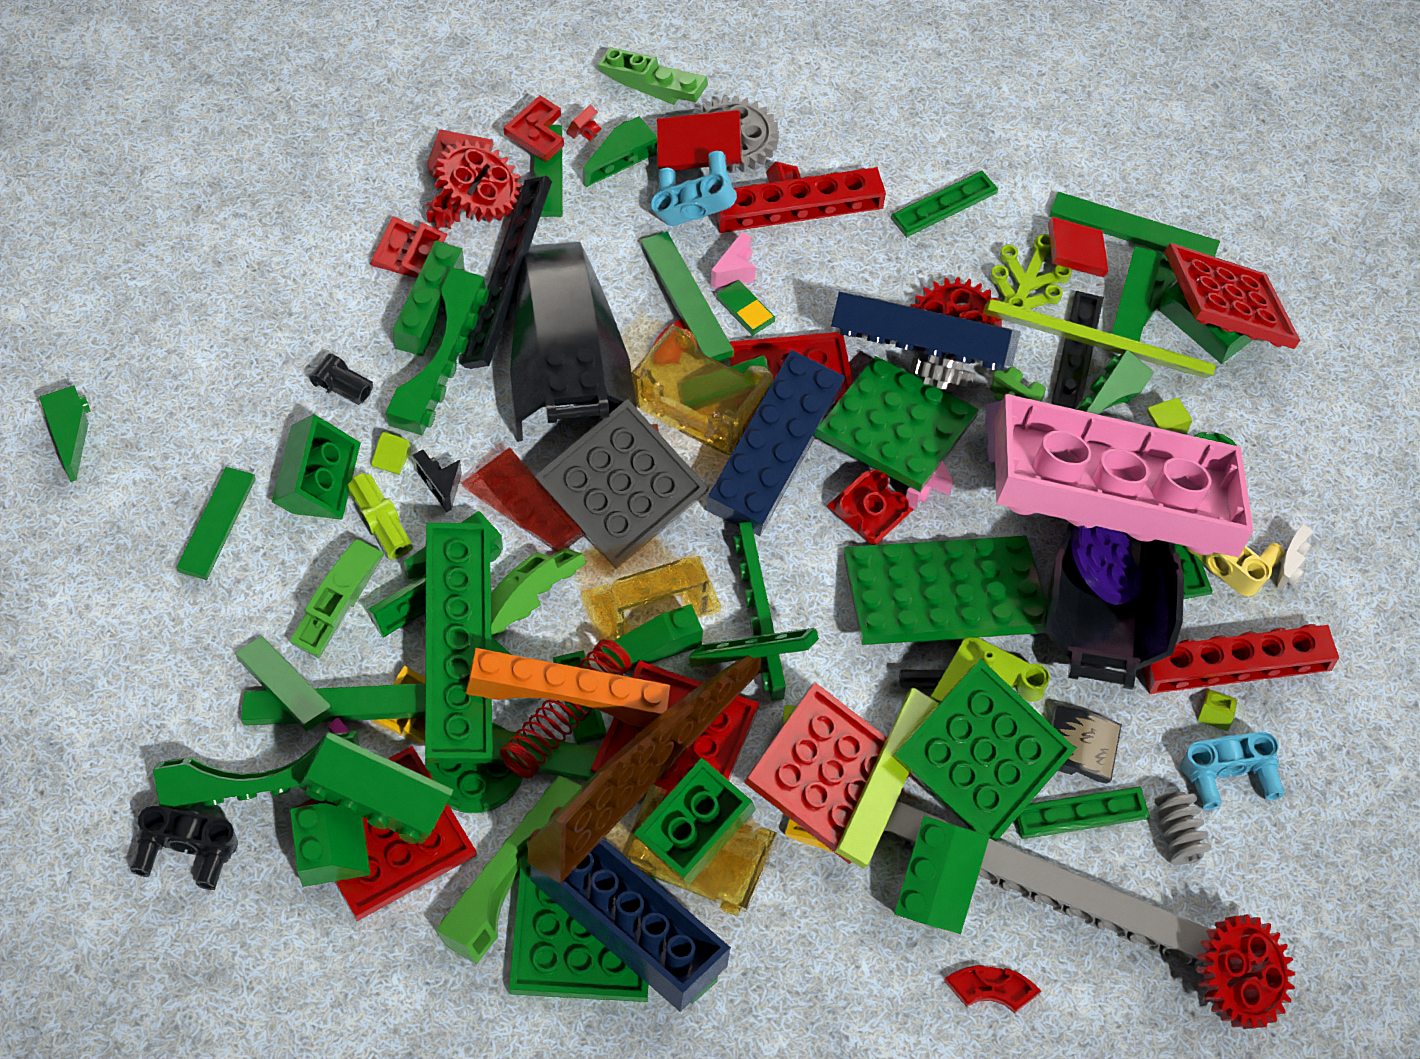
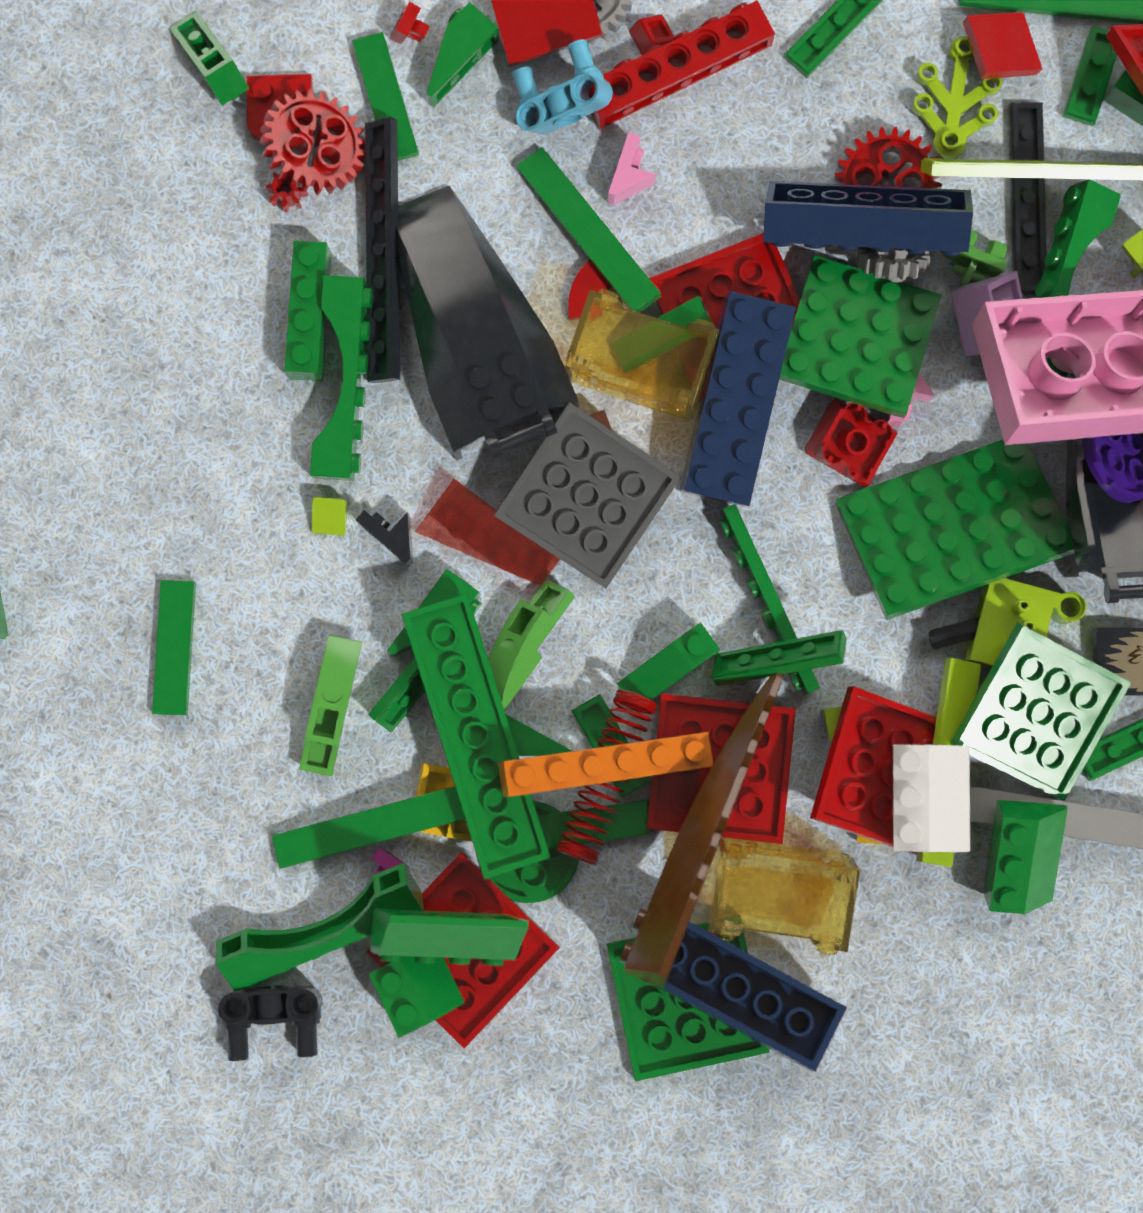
camera: 10 degrees left, 25 degrees up
(284, 683) = (310, 820): tile -> none
(316, 469) = (258, 559): green slope -> none
(335, 376) = (243, 439): black piece -> none
(380, 516) = (342, 596): lime piece -> none
(392, 247) = (278, 233): red slope -> none
(415, 112) = (209, 58): none -> green slope
(474, 919) = (581, 1021): bright green arch -> none
(532, 130) = (350, 53): red plate -> none
(681, 577) = (652, 615): clear yellow windscreen -> none
(695, 821) = (775, 878): green slope -> none
(745, 307) = (654, 223): green tile -> none
(859, 787) = (931, 798): none -> white slope
(992, 984) = (1093, 944): red tile -> none
(1137, 293) = (1080, 98): green tile -> none

